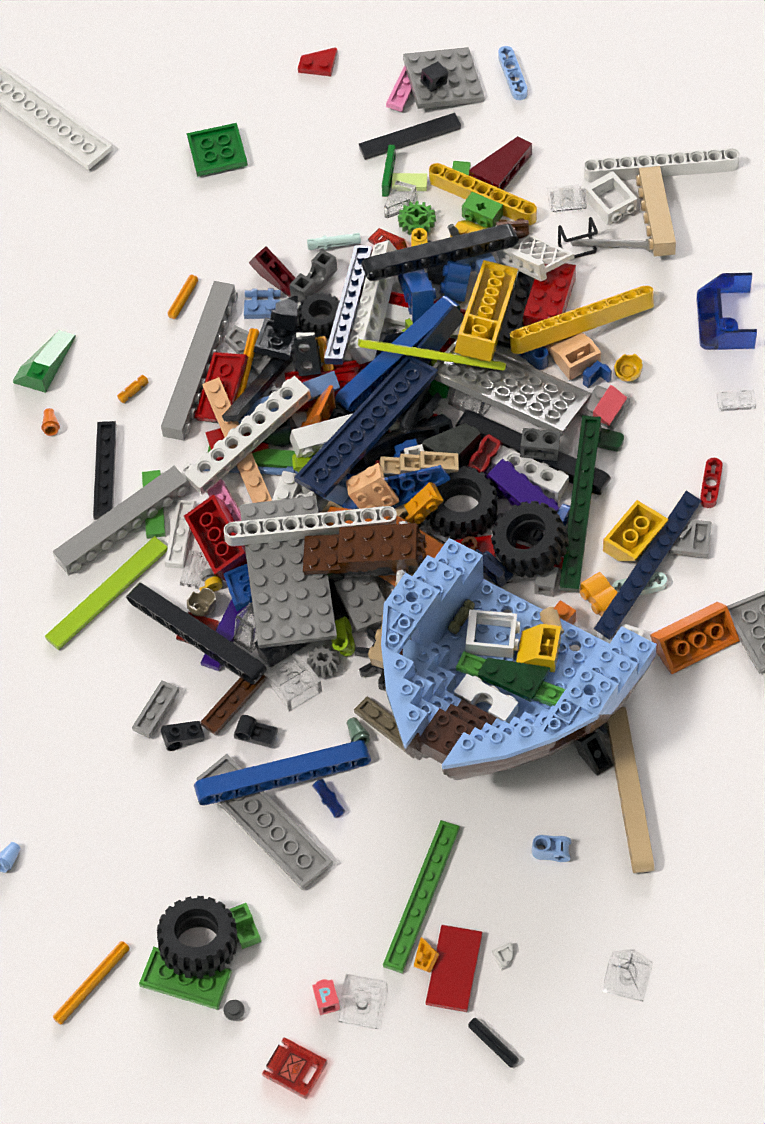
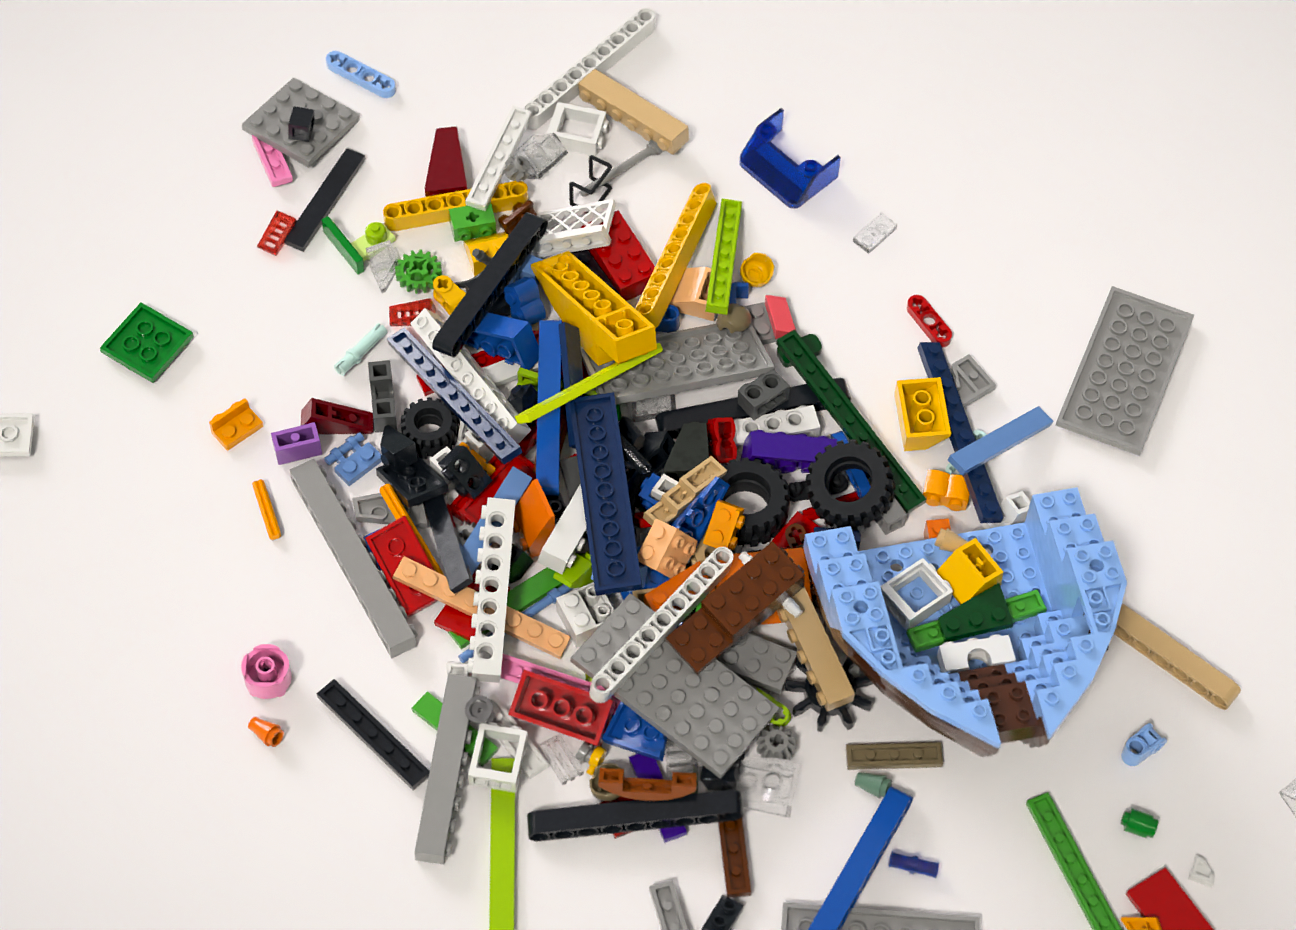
camera: 50 degrees left, 0 degrees up
(44, 363) = (194, 682): wedge -> none
(82, 387) = (266, 672): none -> bright pink brick
(132, 389) = (313, 635): light orange axle -> none
(162, 548) = (497, 779): none -> white window
(167, 499) = (480, 710): none -> flat silver piece
(211, 619) = (647, 789): none -> dark orange slope
(216, 233) = (235, 424): none -> light orange bracket
(235, 269) = (296, 443): none -> medium lavender brick
(251, 731) = (781, 863): black plate -> none
(318, 62) = (157, 189): red wing -> none
(361, 130) = (270, 230): none -> clear red slope
(414, 176) = (375, 233): none -> lime piece
(462, 166) = (407, 193): bright green tile -> none
(495, 892) = (1139, 823): none -> green brick
(535, 180) = (501, 151): none -> white tile
(538, 194) = (517, 168): none -> light grey gear
(578, 385) = (736, 320): none -> dark tan hair
(610, 341) = (724, 257): none -> lime tile
(664, 588) = (1000, 440): none -> medium blue tile
(695, 637) = (1060, 457): orange slope -> none

